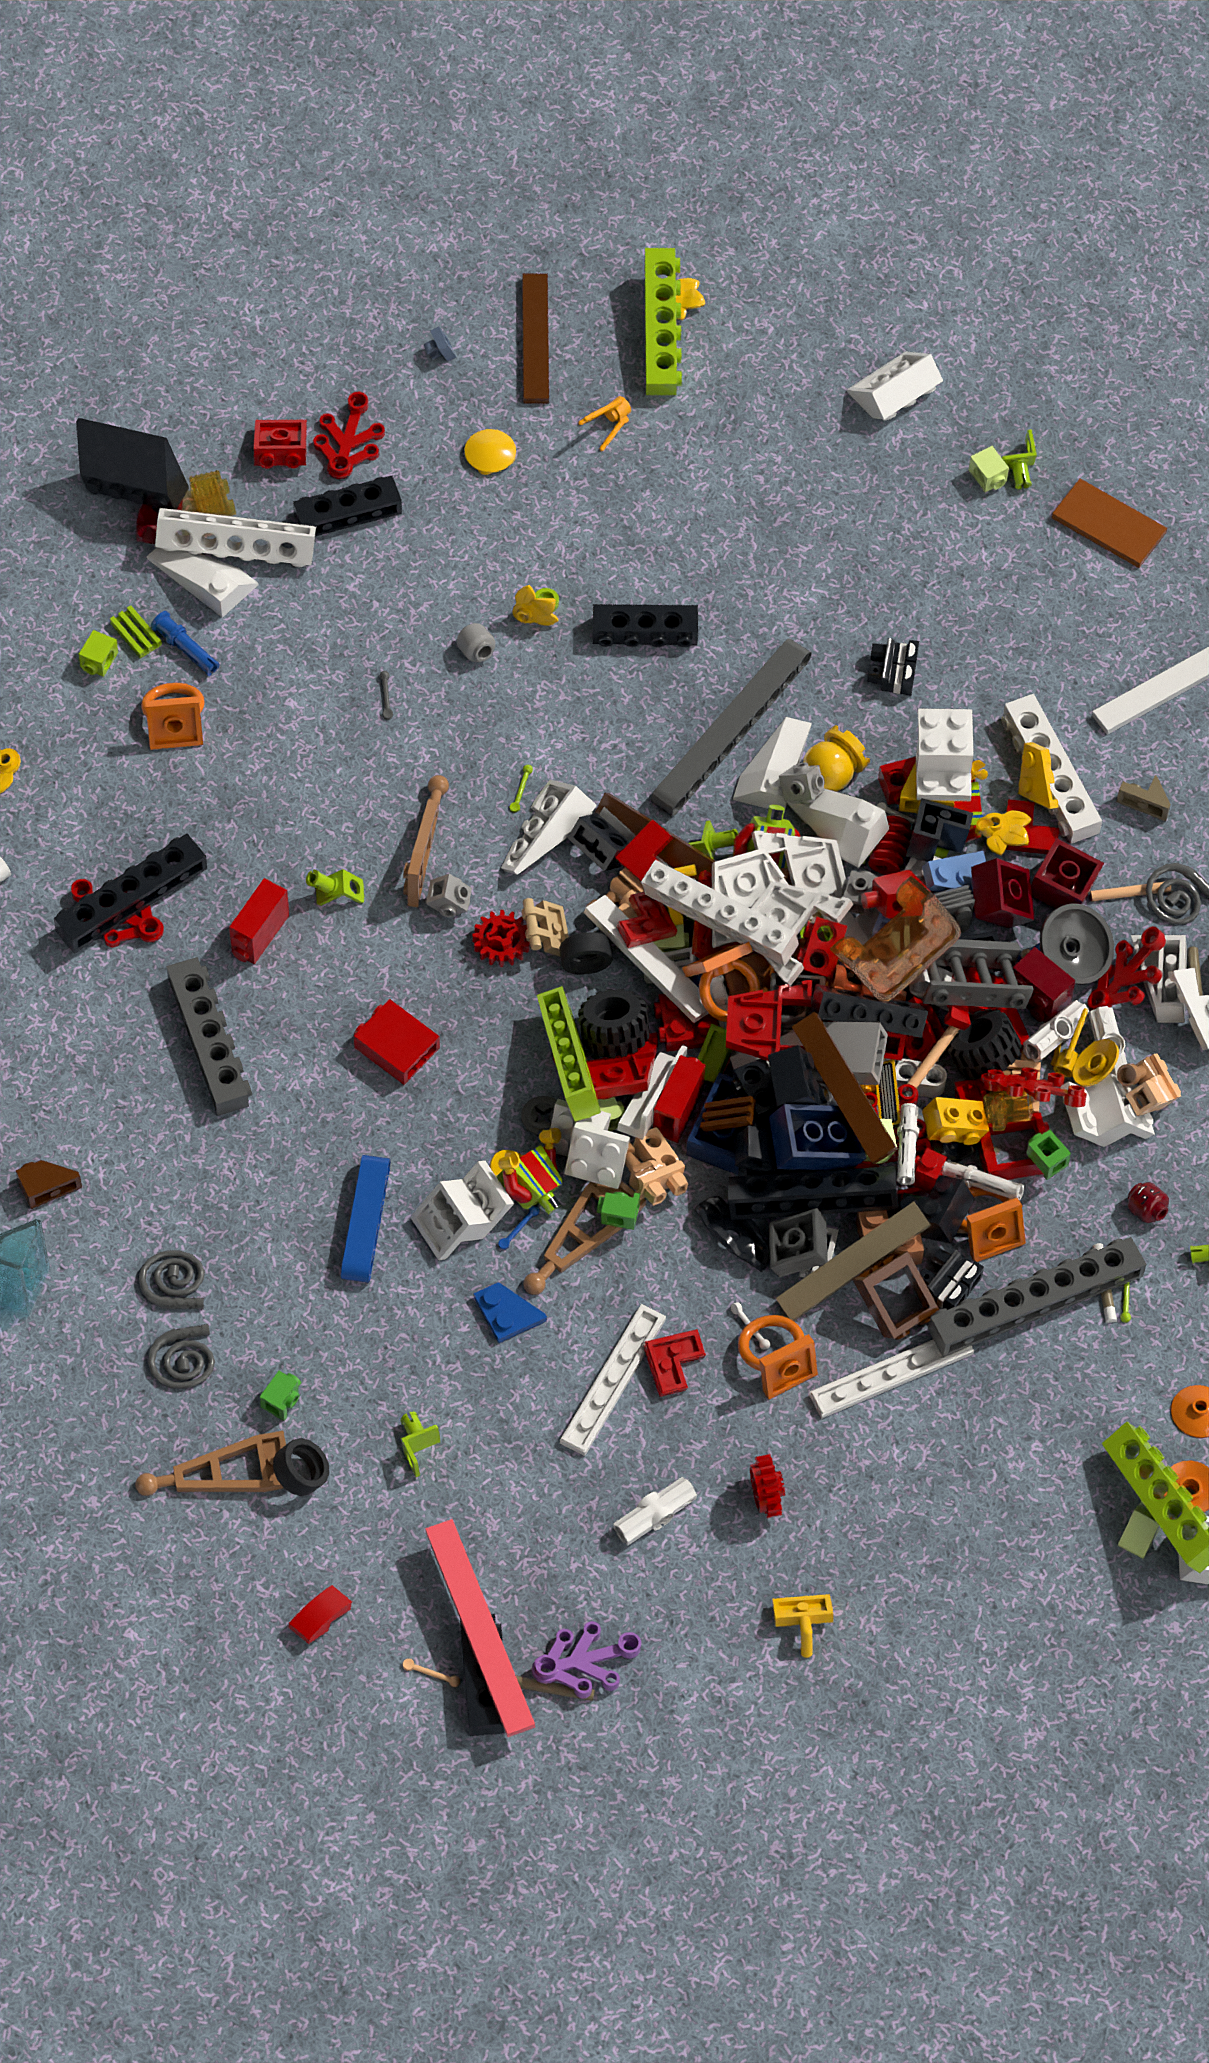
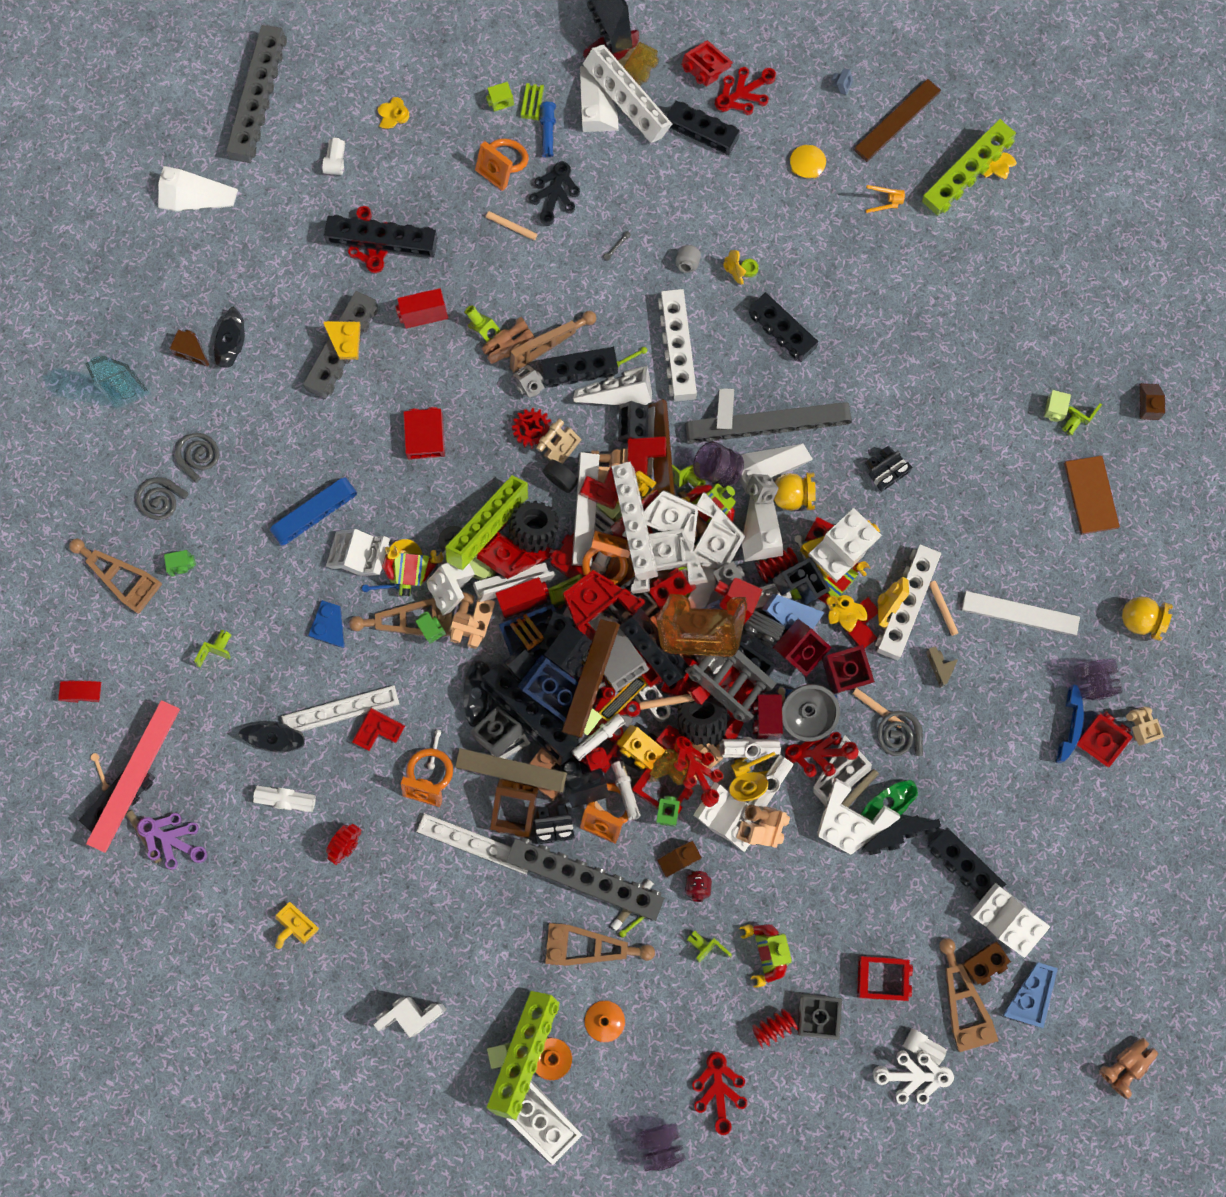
camera: 50 degrees right, 15 degrees up
(86, 1154) = (227, 352): none -> black piece
(211, 1019) = (345, 338): none -> yellow wing
(253, 769) = (515, 227): none -> light nougat bar
(262, 696) = (555, 191): none -> black plant
(289, 1477) = (156, 619): black tyre -> none
(379, 884) = (502, 343): none -> nougat piece
(500, 805) = (586, 359): none -> black brick
(554, 719) = (675, 300): none -> white brick
(558, 1478) = (287, 741): none -> black piece
(676, 748) = (725, 409): none -> white sticker
(732, 800) = (718, 464): none -> clear purple wheel
(896, 385) = (1058, 314): white slope -> none
(1014, 1577) = (409, 1016): none -> white bracket
(1071, 390) = (1151, 401): none -> reddish brown slope
(1079, 1386) = (558, 944): none -> medium nougat plate
(1091, 746) = (943, 608): none -> light nougat bar
(1103, 1195) = (679, 859): none -> reddish brown slope

